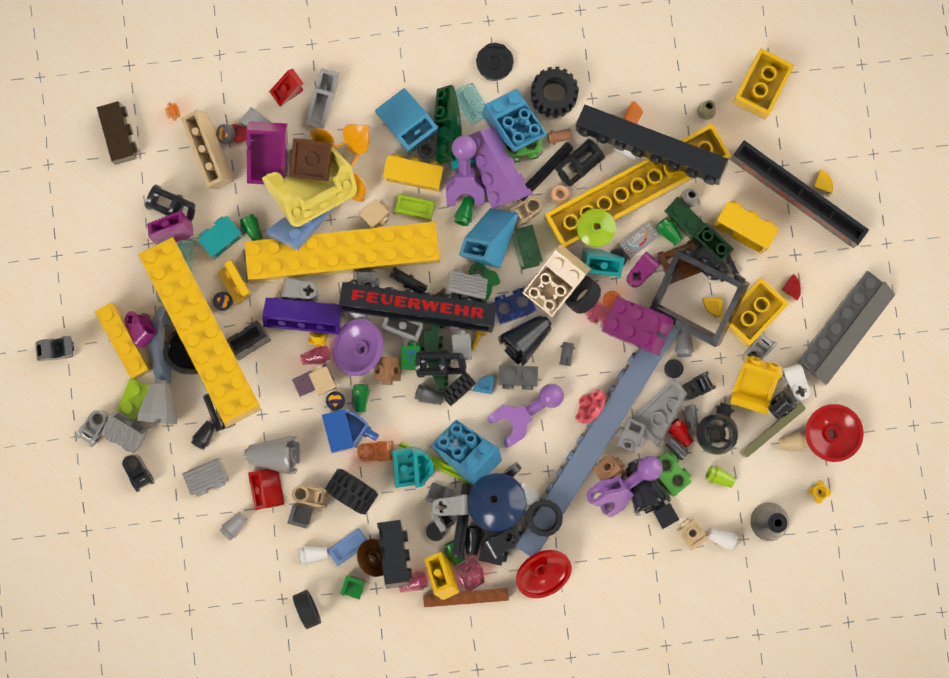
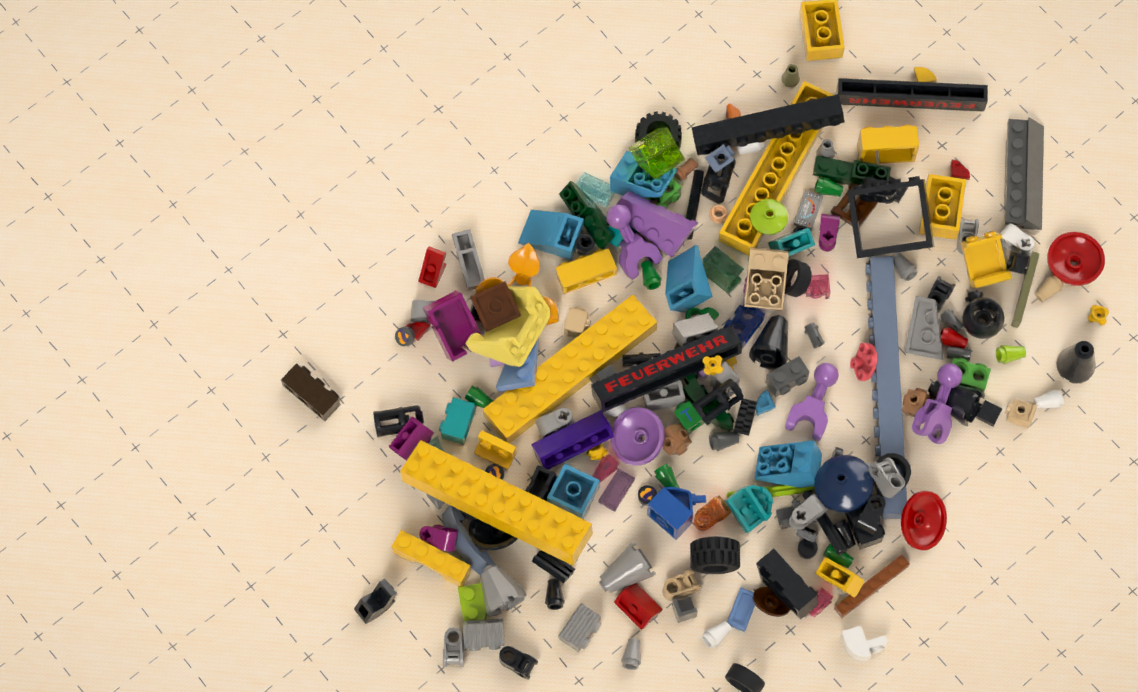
camera: 30 degrees left, 15 degrees down
(172, 111) = (347, 345): clear orange plate -> none
(207, 149) = (399, 356): tan brick -> none
(274, 360) = (573, 491): none -> dark azure brick
(322, 380) = (626, 480): tan brick -> none
(353, 587) = (770, 638): green panel -> none
(414, 207) = (604, 298): lime tile -> none
(419, 640) = (857, 646): none -> white brick
(455, 336) = (709, 370): none -> yellow plate
(470, 574) = (863, 561): clear pink brick -> none
(494, 61) = (591, 145): black tile -> none
(524, 212) = (703, 244): tan piece -> none
(534, 522) = (887, 477): none -> light grey piece
(537, 109) = (657, 152): none -> clear neon green slope
(584, 153) = (713, 160): none -> sand blue brick
(609, 298) = (820, 268): clear orange plate -> none
(631, 439) = (914, 364): light grey brick -> none
(637, 325) = (857, 272): magenta piece -> none
(673, 368) = (909, 292): black tile -> none
(713, 306) = (906, 224): yellow tile -> none

